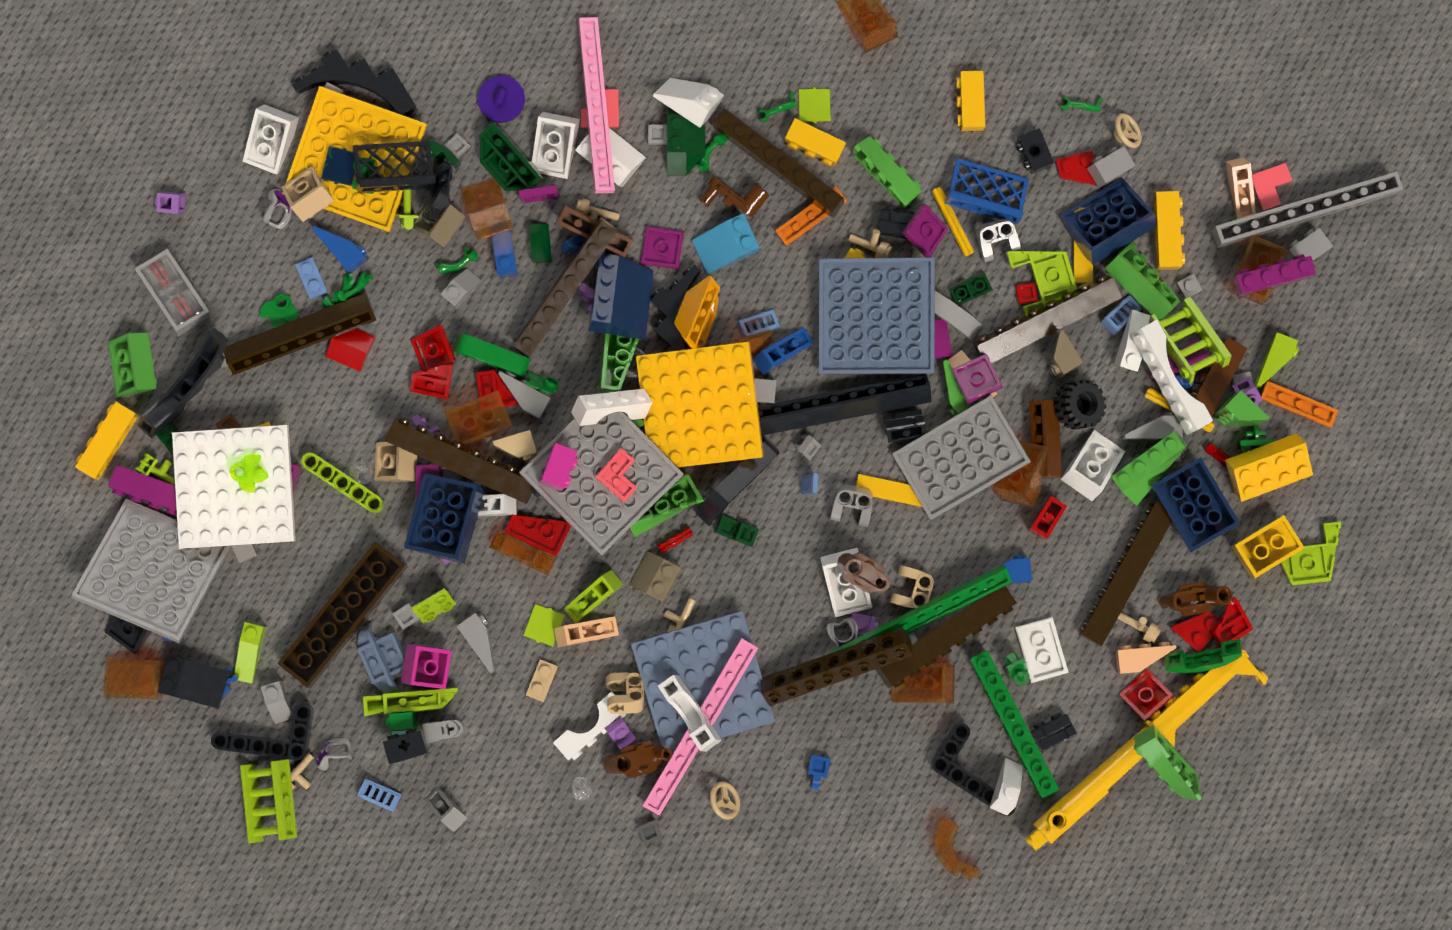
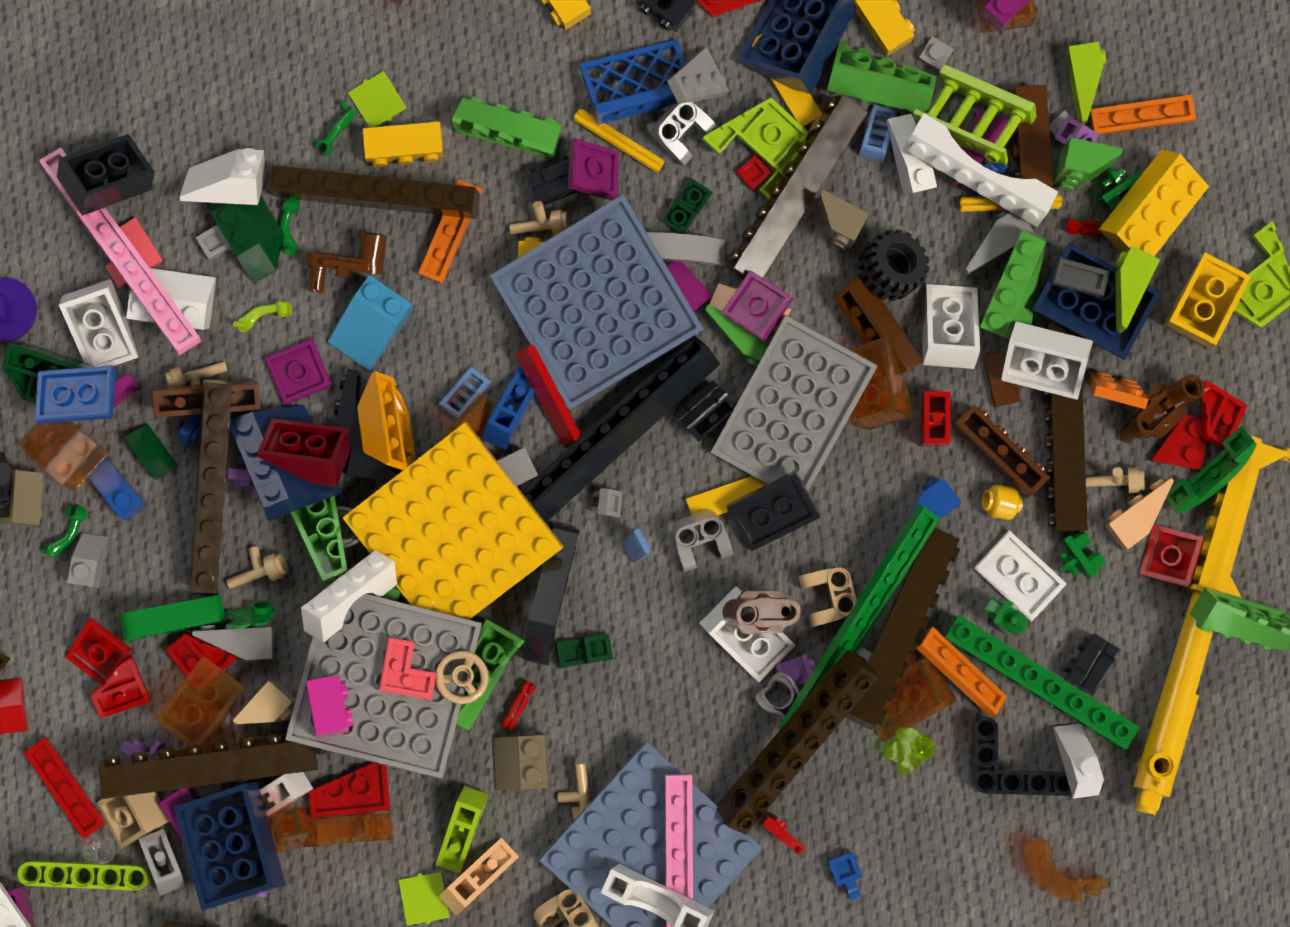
camera: 30 degrees left, 0 degrees up
(362, 421) = (65, 788): none -> red plate
(395, 503) = (161, 862): none -> light grey slope
(488, 531) = (290, 830): none -> clear orange arch
(515, 179) = (75, 394): none -> blue tile
(574, 361) = (274, 567): none -> tan piece
(615, 51) = (105, 174): none -> black brick
(639, 300) = (306, 450): none -> dark red slope
(651, 196) = (247, 321): none -> lime piece
(657, 495) = (473, 693): none -> tan piece
(792, 713) = (777, 827): none -> red wing
(811, 356) = (548, 394): none -> red tile
(902, 714) = (906, 749): none -> clear neon green plate
(909, 514) = (773, 511): none -> black plate
(967, 687) = (961, 672): none -> orange plate
(1026, 213) = (698, 80): none -> light grey wing
(1058, 596) = (1002, 502): none -> yellow head
(1076, 563) = (1000, 451): none -> reddish brown brick
(1088, 669) = (1074, 546): none -> green hips
(1106, 518) = (1002, 391): none -> reddish brown tile
(1140, 523) = (1046, 360): none -> white slope
(1179, 573) = (1122, 391): none -> orange plate
(1194, 483) = (1080, 277): none -> dark grey tile
(1225, 504) = (1131, 282): none -> lime slope

